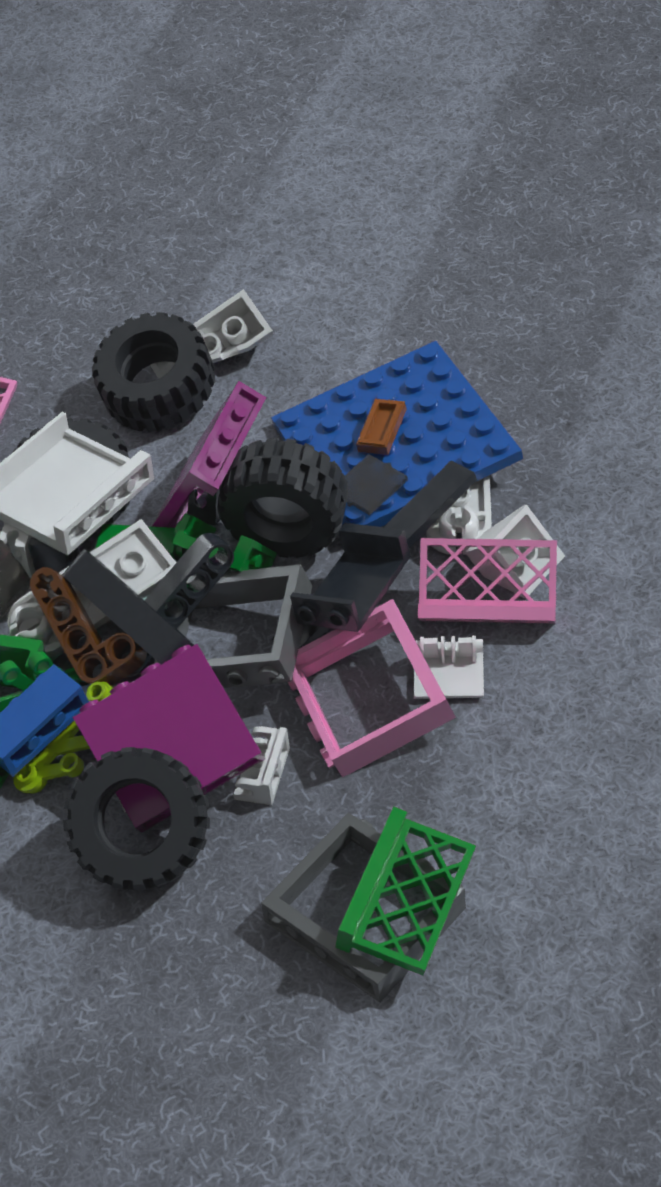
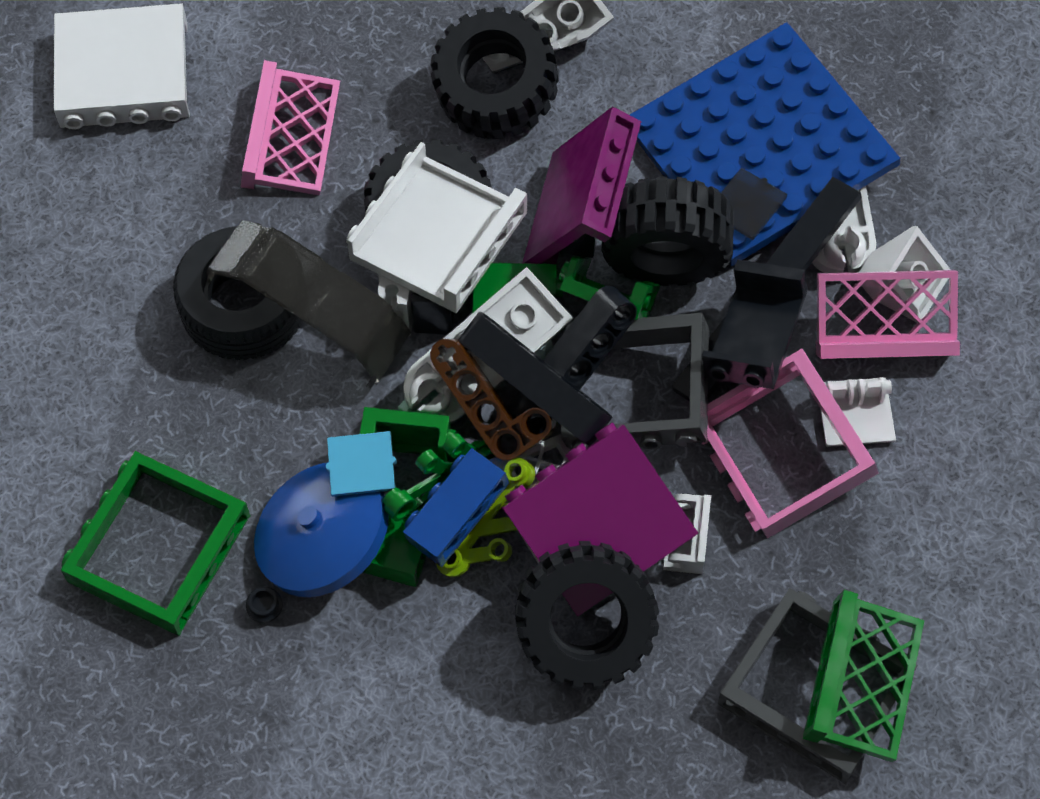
camera: 10 degrees left, 15 degrees up
(381, 426) = (749, 133): dark orange tile -> none

